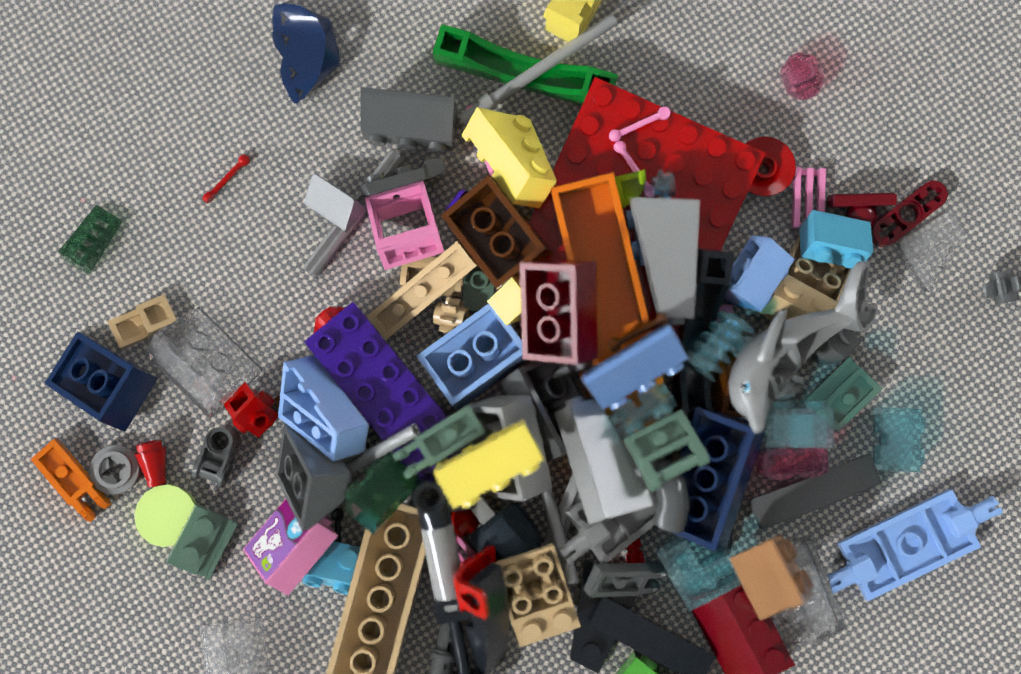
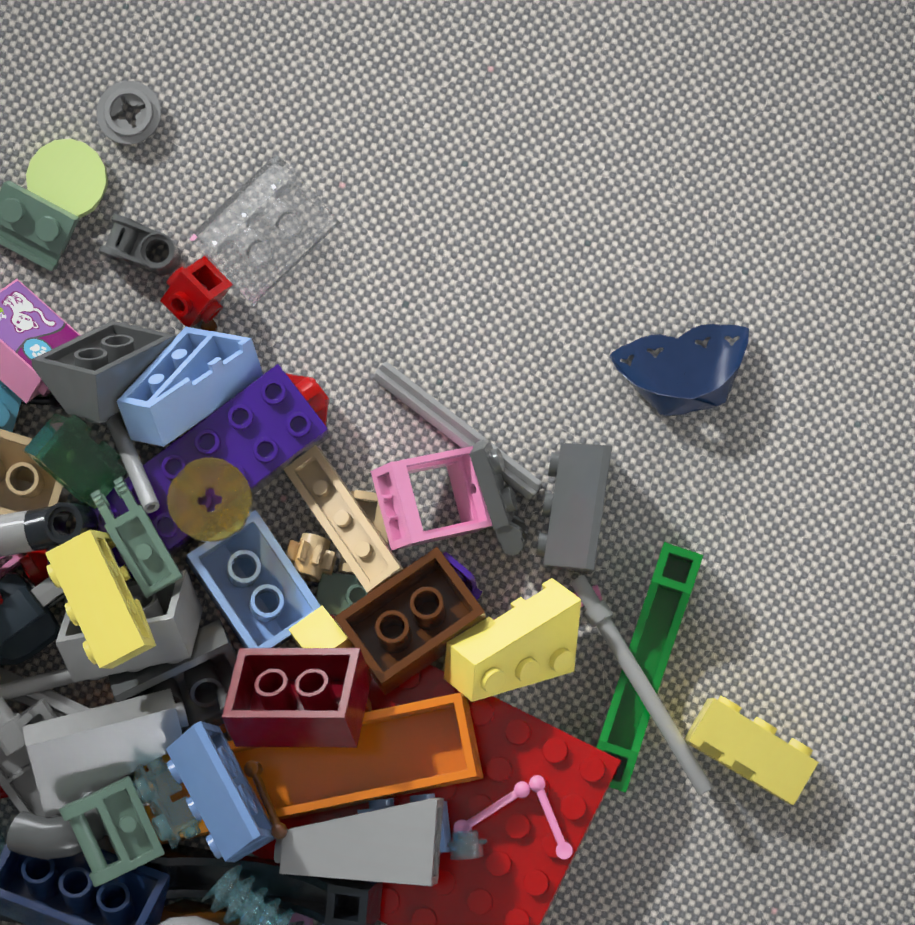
camera: 90 degrees right, 0 degrees up
(69, 478) = (119, 55): orange hinge -> none
(94, 253) = (414, 85): clear green slope -> none
(100, 382) = (243, 95): dark blue slope -> none
(142, 322) = (321, 149): tan slope -> none
(152, 461) = (136, 162): red cone -> none
(243, 160) = (536, 283): red hinge -> none
(332, 203) = (468, 402): slope -> none
(395, 373) = (192, 483): none -> clear yellow plate
(630, 186) = (467, 800): lime tile -> none

